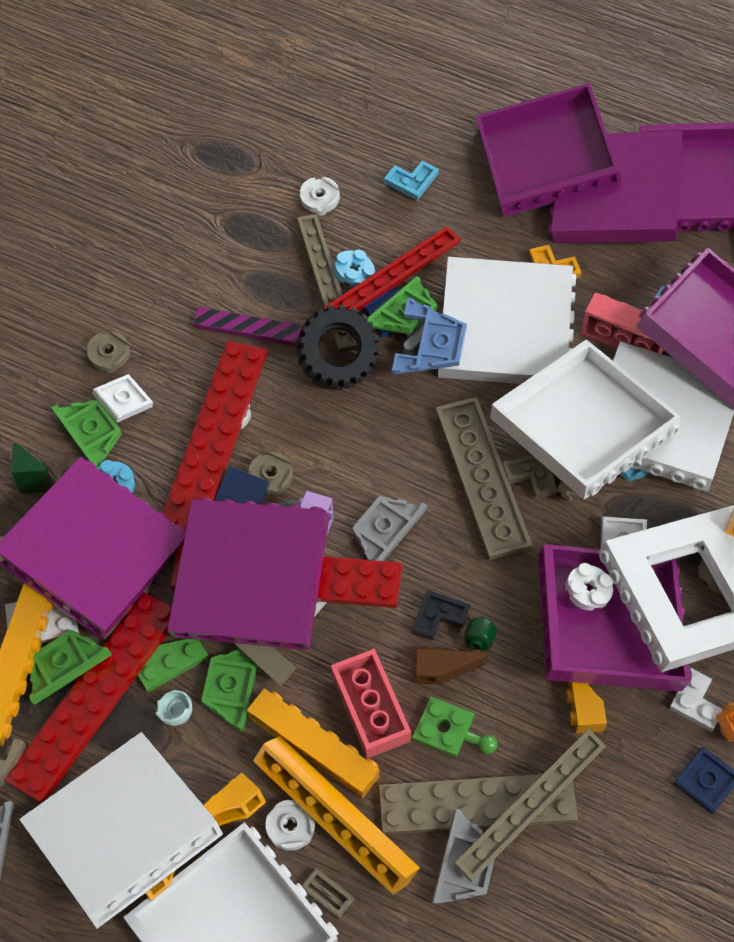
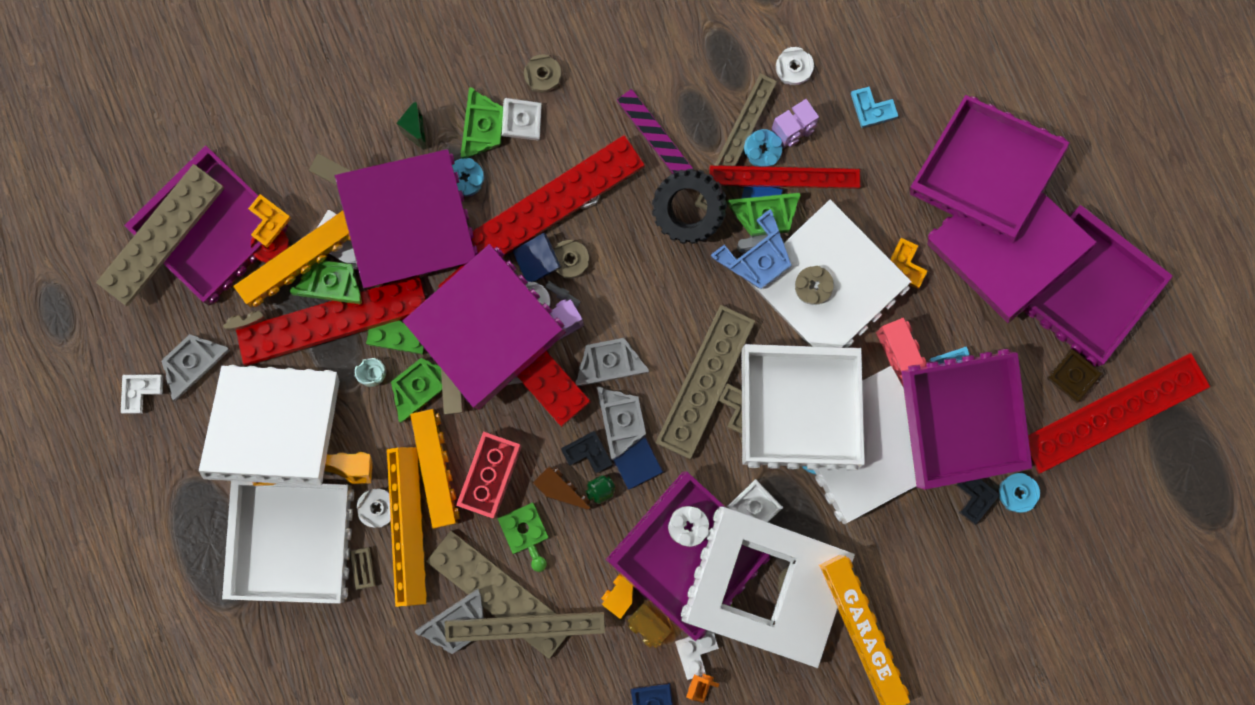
camera: 45 degrees right, 20 degrees up
(364, 228) = (792, 127): none -> lavender piece
(441, 563) = (621, 420): none -> light grey wing
(490, 589) = (637, 464): none -> dark blue tile
(499, 316) = (813, 296): none -> dark tan plate
(636, 711) = (649, 626): none -> clear yellow hinge

